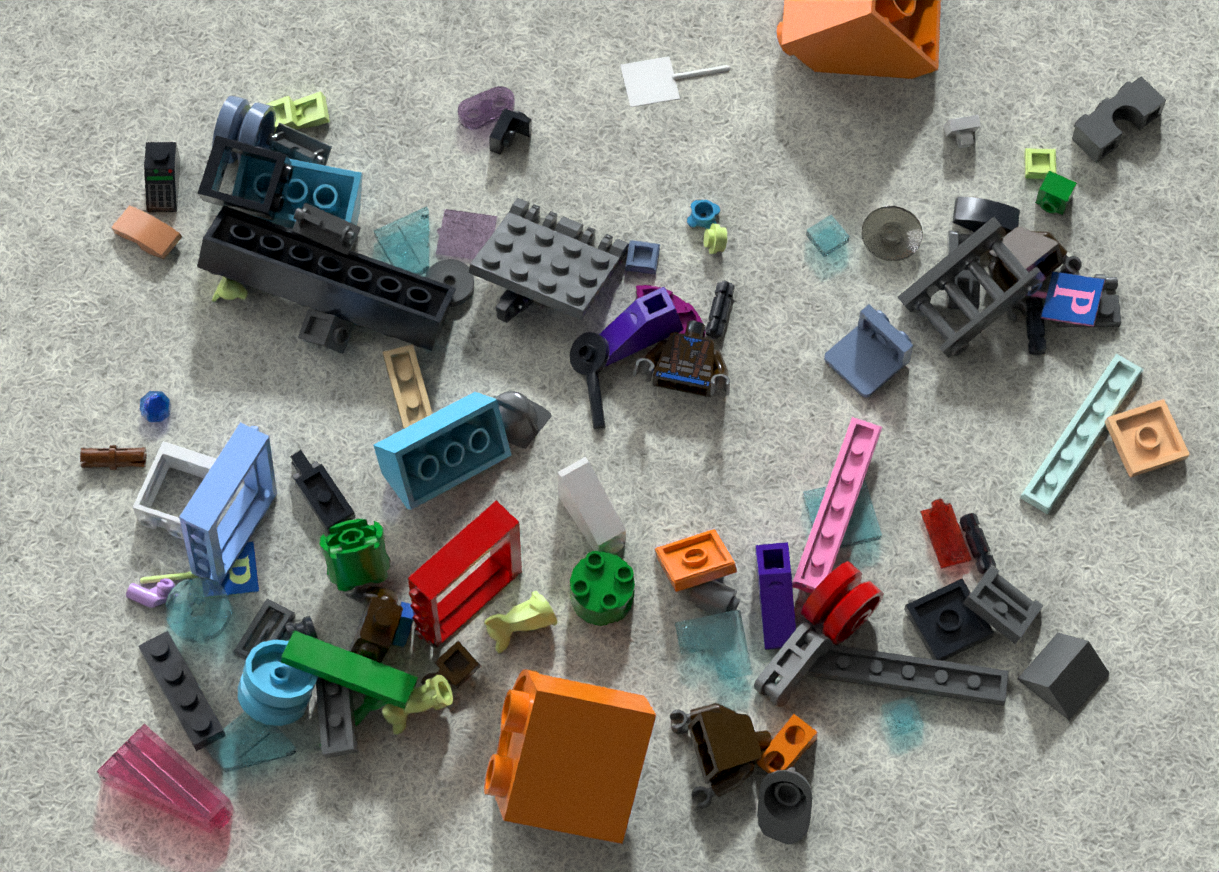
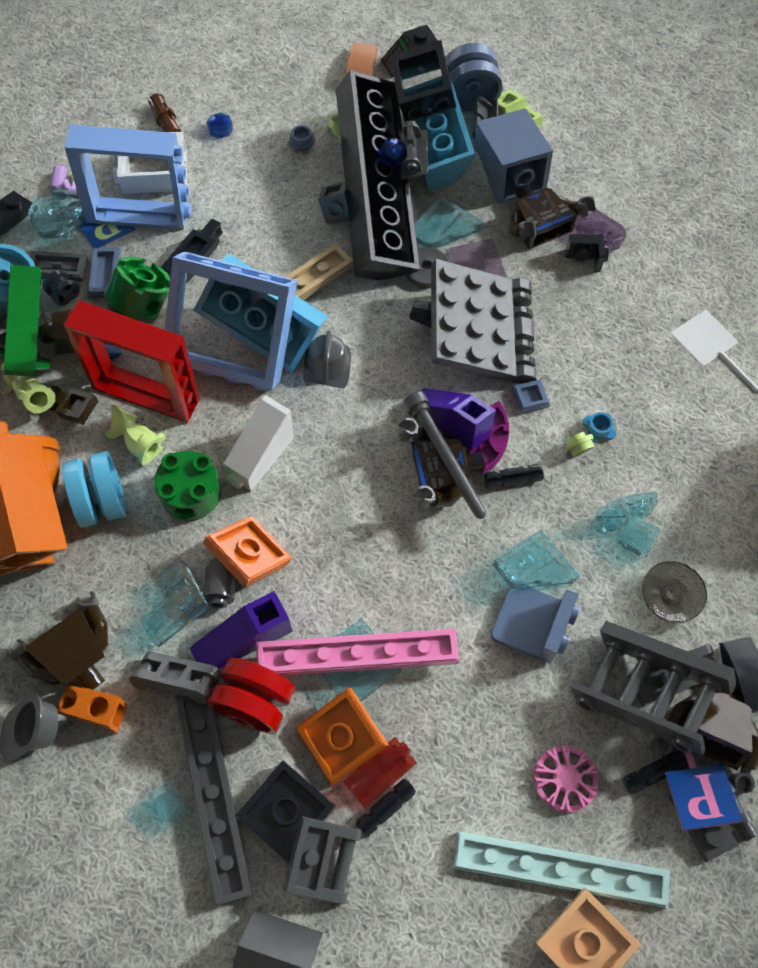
camera: 65 degrees right, 0 degrees up
(219, 332) = (301, 138): none -> sand blue plate
(297, 589) = (101, 269): none -> sand blue tile
(319, 245) = (393, 152): none -> clear blue tile
(365, 139) = (513, 154): none -> sand blue slope
(422, 443) = (243, 277): none -> light blue window
(448, 148) = (545, 215): none -> torso
(575, 658) = (89, 490): none -> medium azure wheel
(589, 357) = (399, 393): black piece -> none
(624, 351) = (418, 407): none -> dark grey piece
(799, 236) = (615, 513): none -> clear light blue slope
(815, 329) = (535, 564): none -> clear light blue wing
(904, 550) = (341, 736): none -> orange plate
(1012, 395) = (566, 779): none -> bright pink wheel

